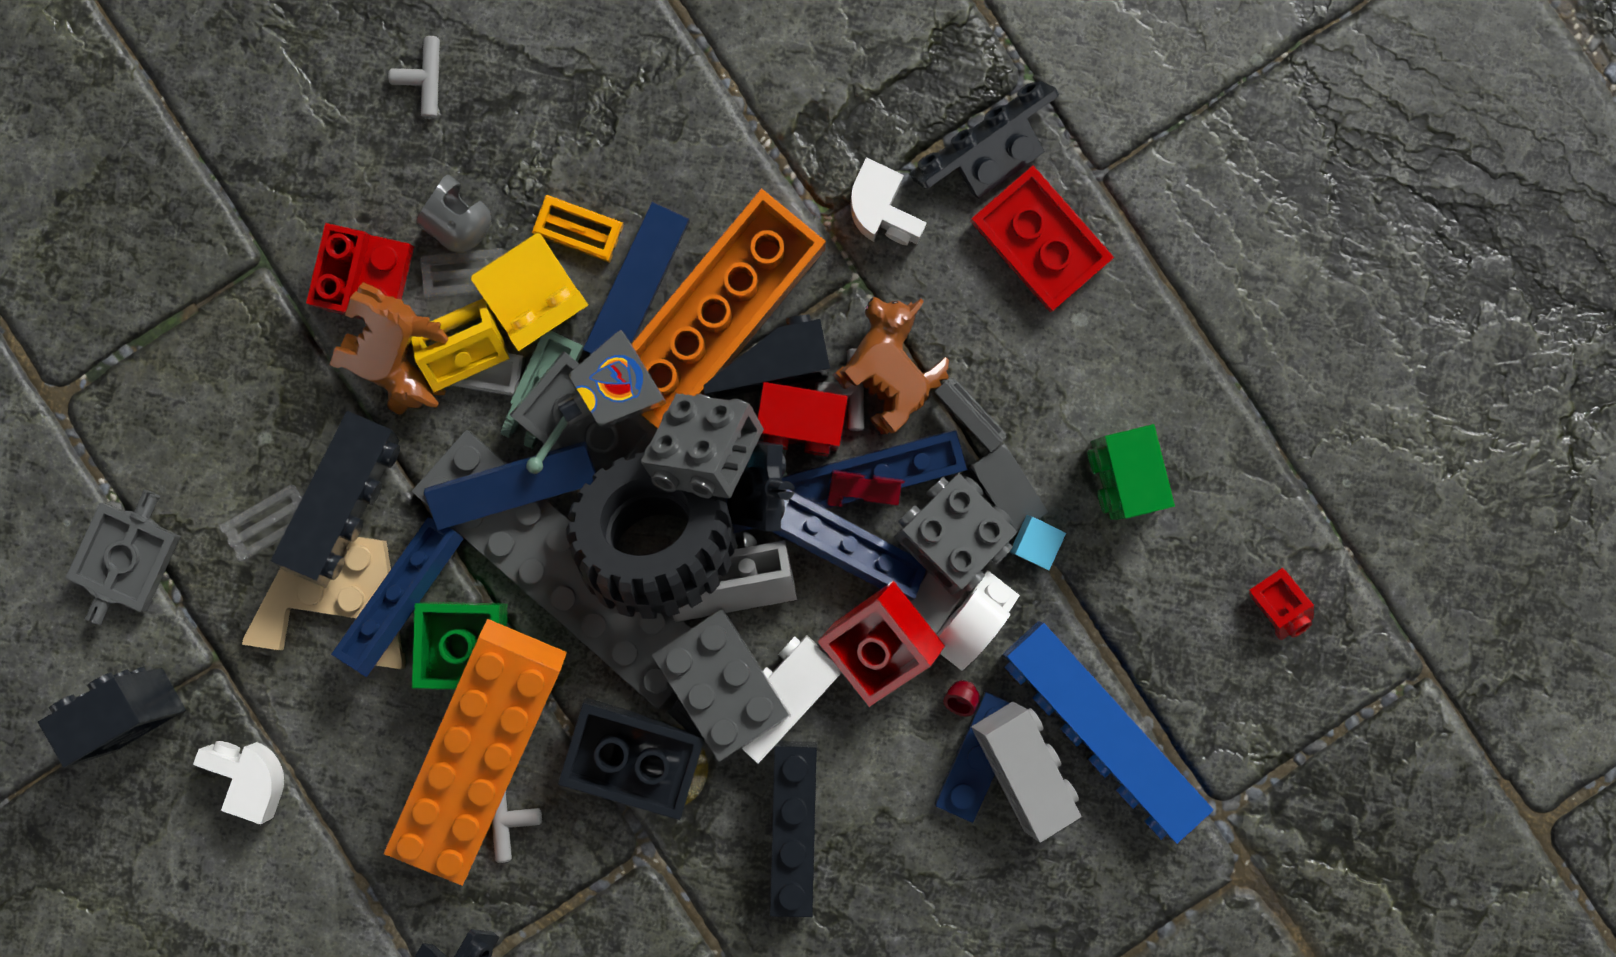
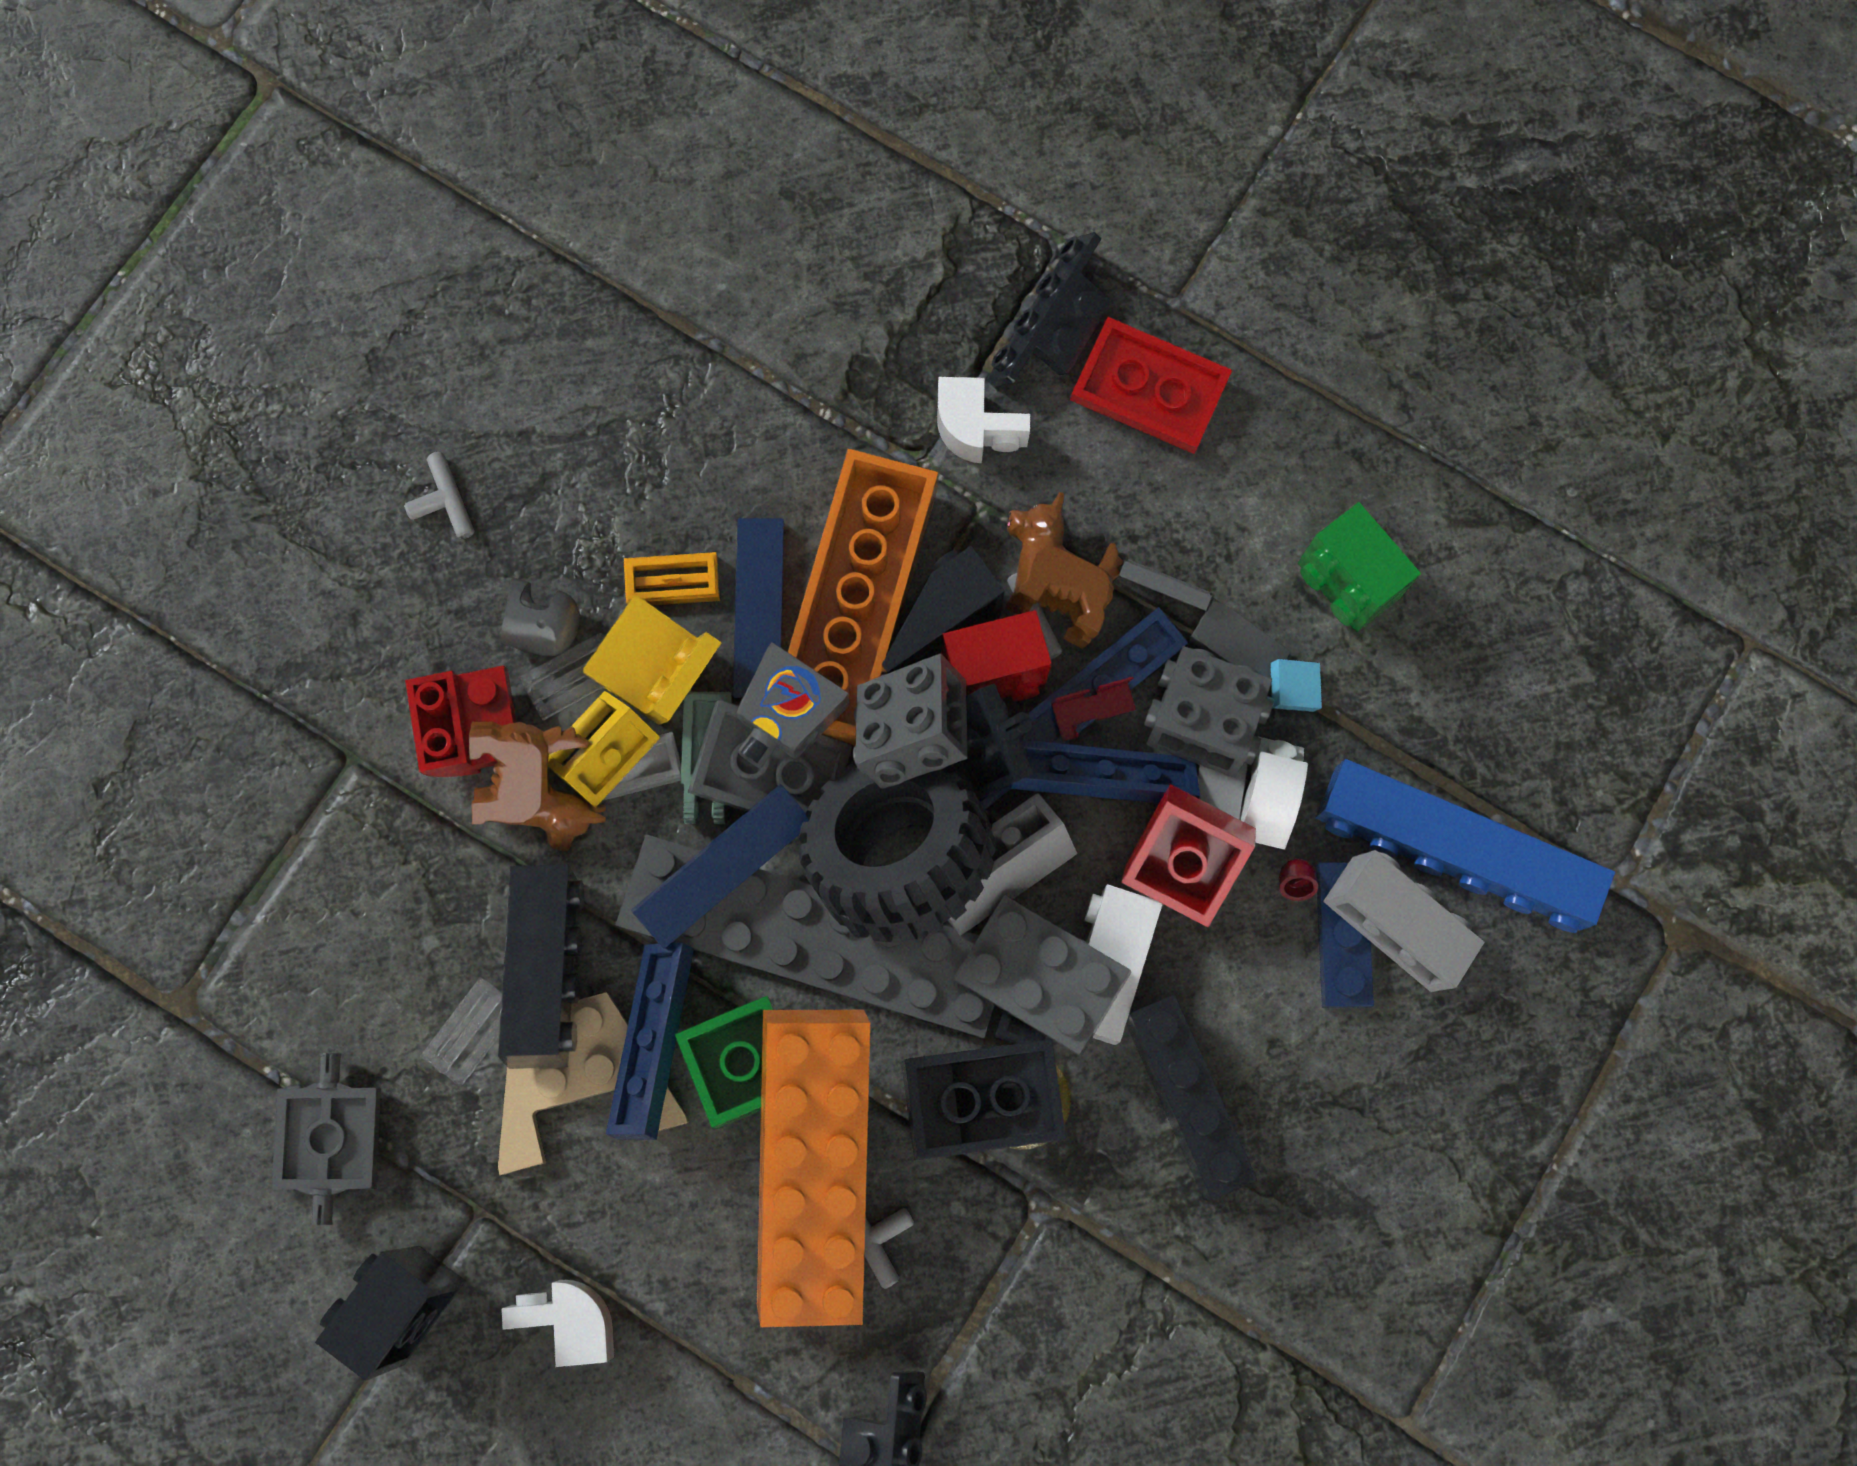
camera: 25 degrees left, 10 degrees down
(534, 464) = (740, 828): sand green hinge -> none
(1283, 604) = (1574, 635): red bracket -> none

